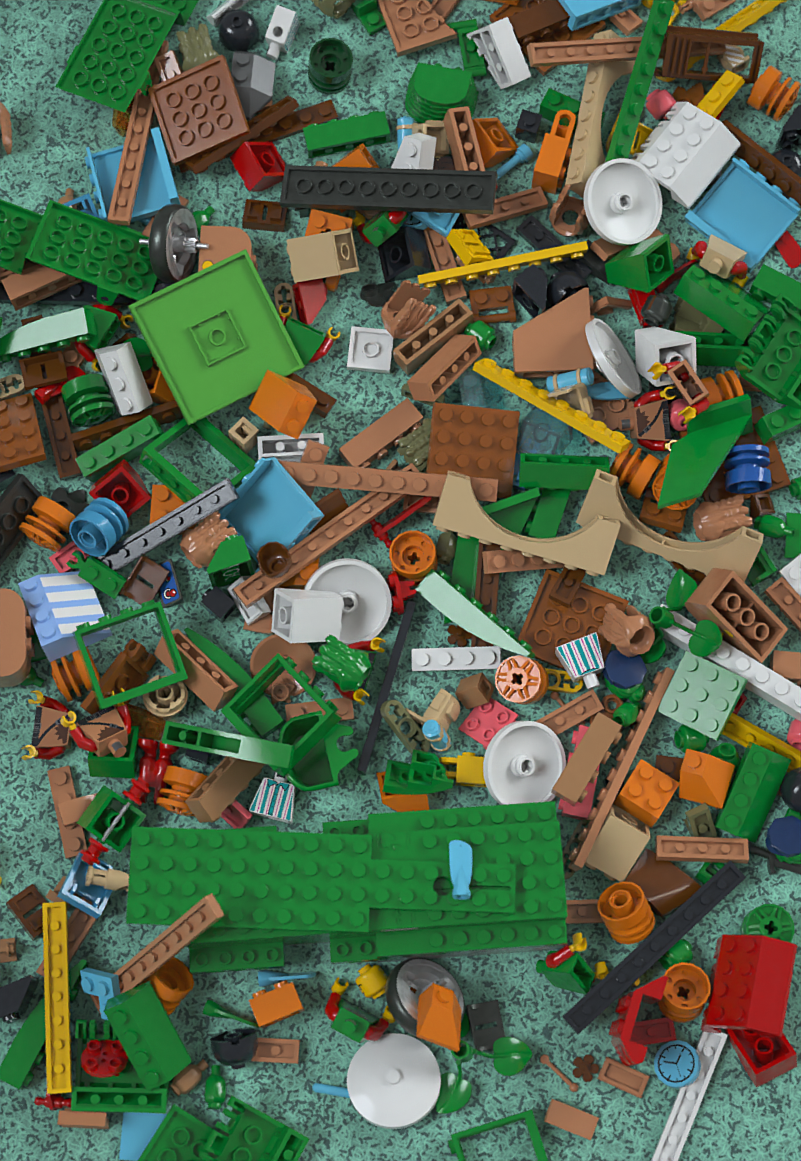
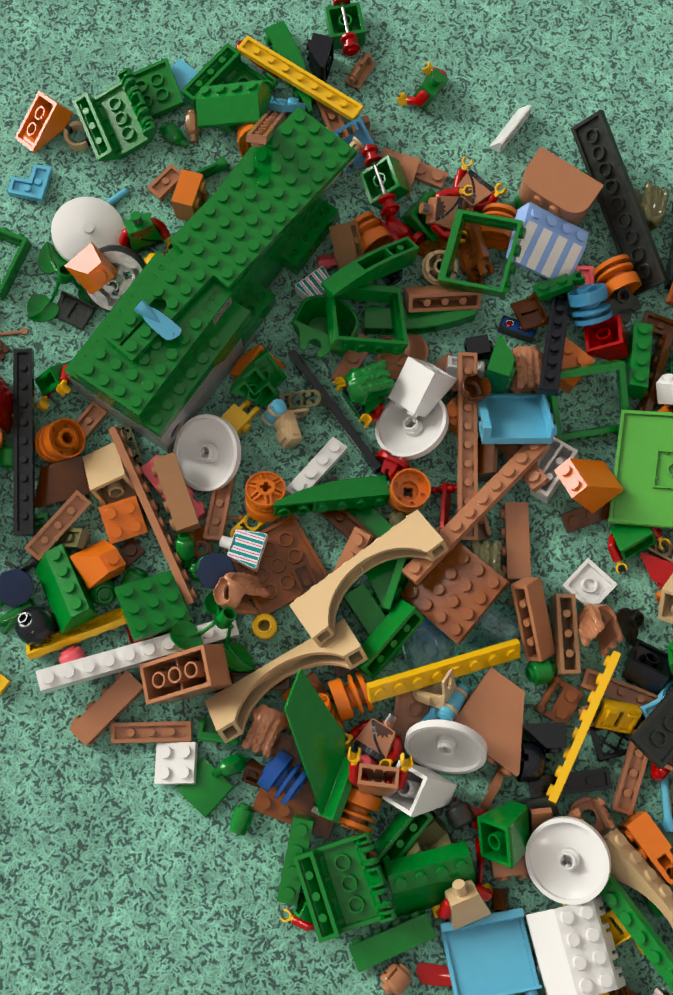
camera: 130 degrees right, 0 degrees up
(24, 903) = (375, 107): reddish brown piece -> none
(83, 1119) = (217, 45): nougat piece -> none
(104, 1058) = (240, 69): red plate -> none
(235, 1048) = (187, 156): black cylinder -> none
(244, 435) = (587, 446): tan brick -> none
(474, 691) = (286, 465): medium nougat panel -> none
(486, 721) = (258, 457): coral hinge -> none
(635, 590) = (264, 627): none -> yellow head
(660, 103) = (635, 973): coral head -> none
(691, 238) = (500, 899): none -> reddish brown slope

